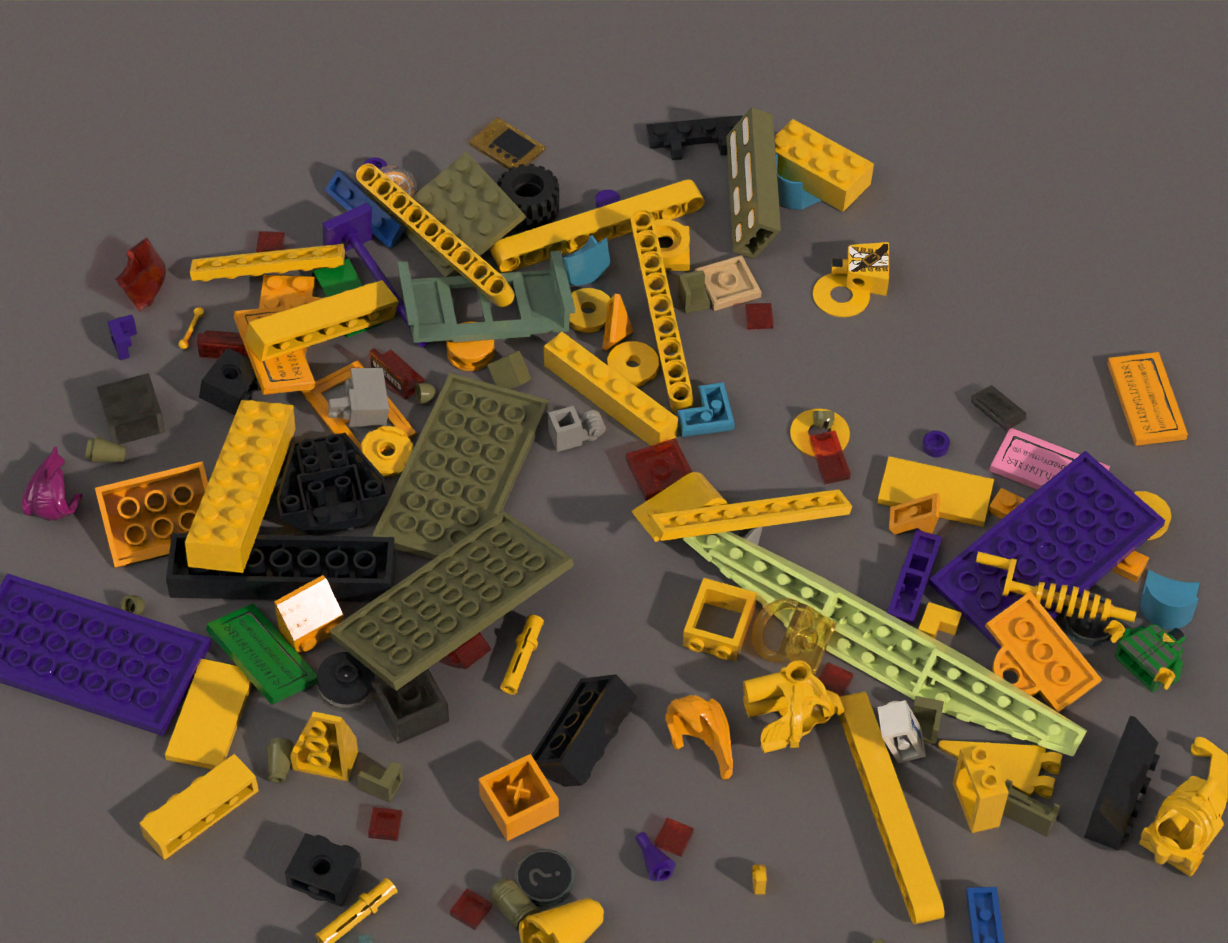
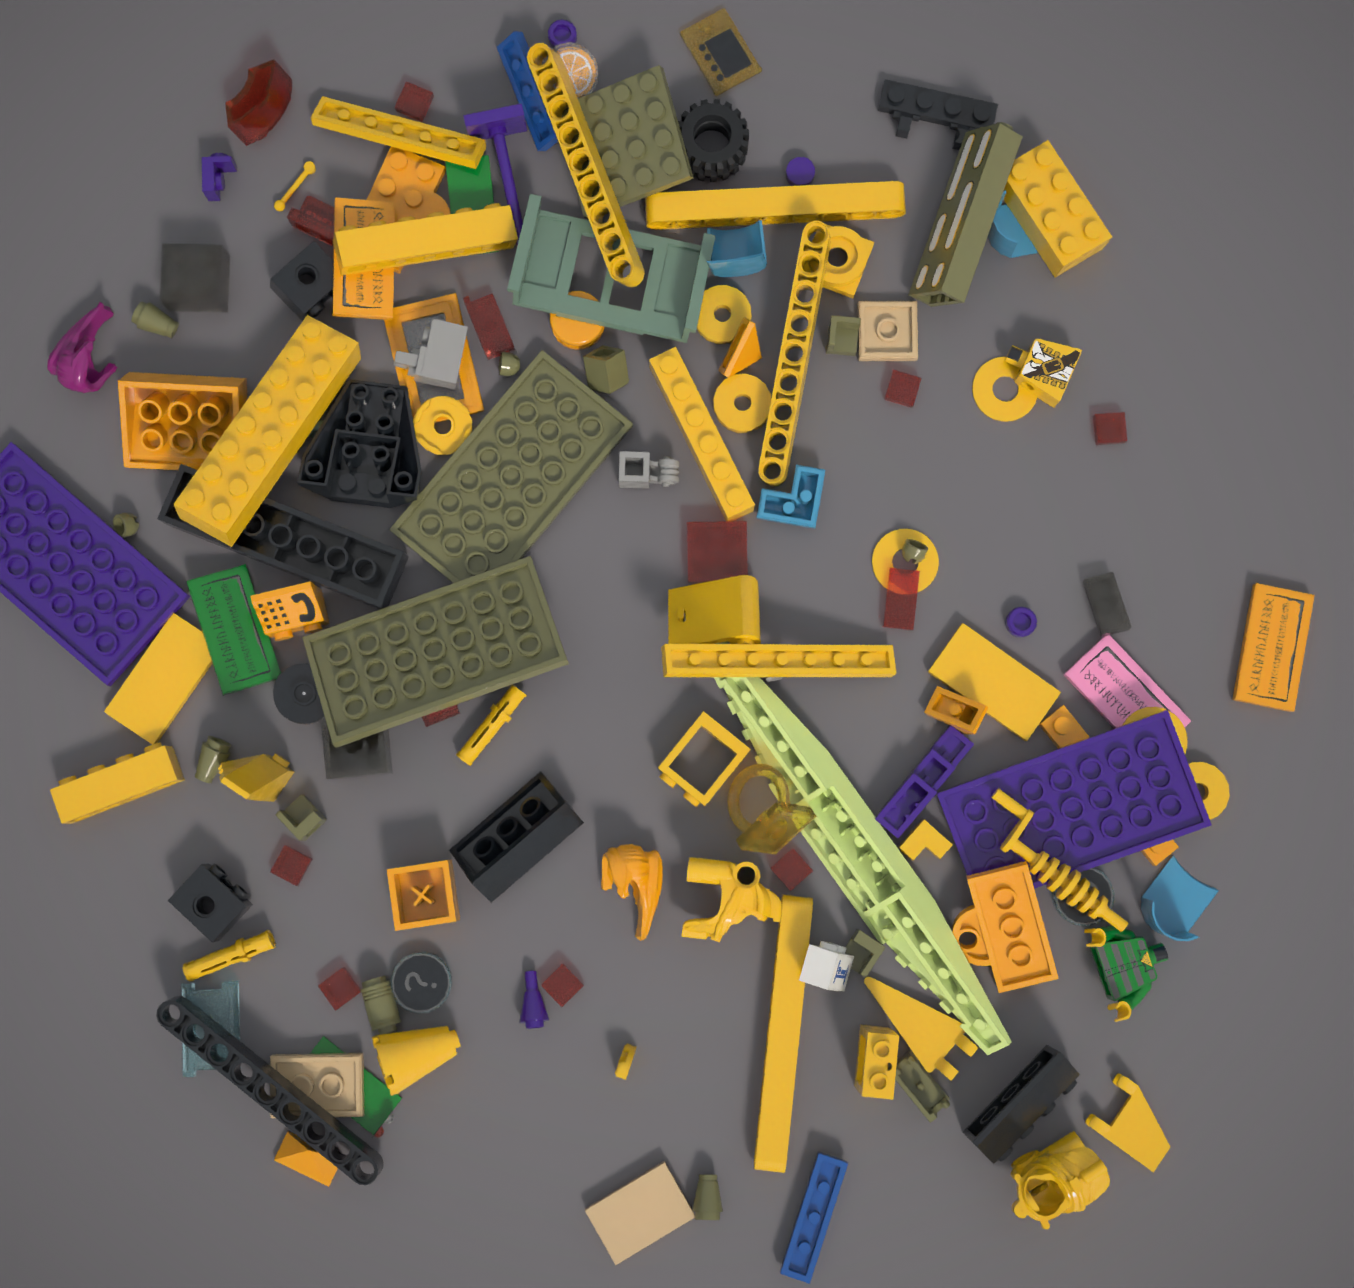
camera: 20 degrees right, 30 degrees up
(938, 294) = (1110, 428): none -> clear red tile

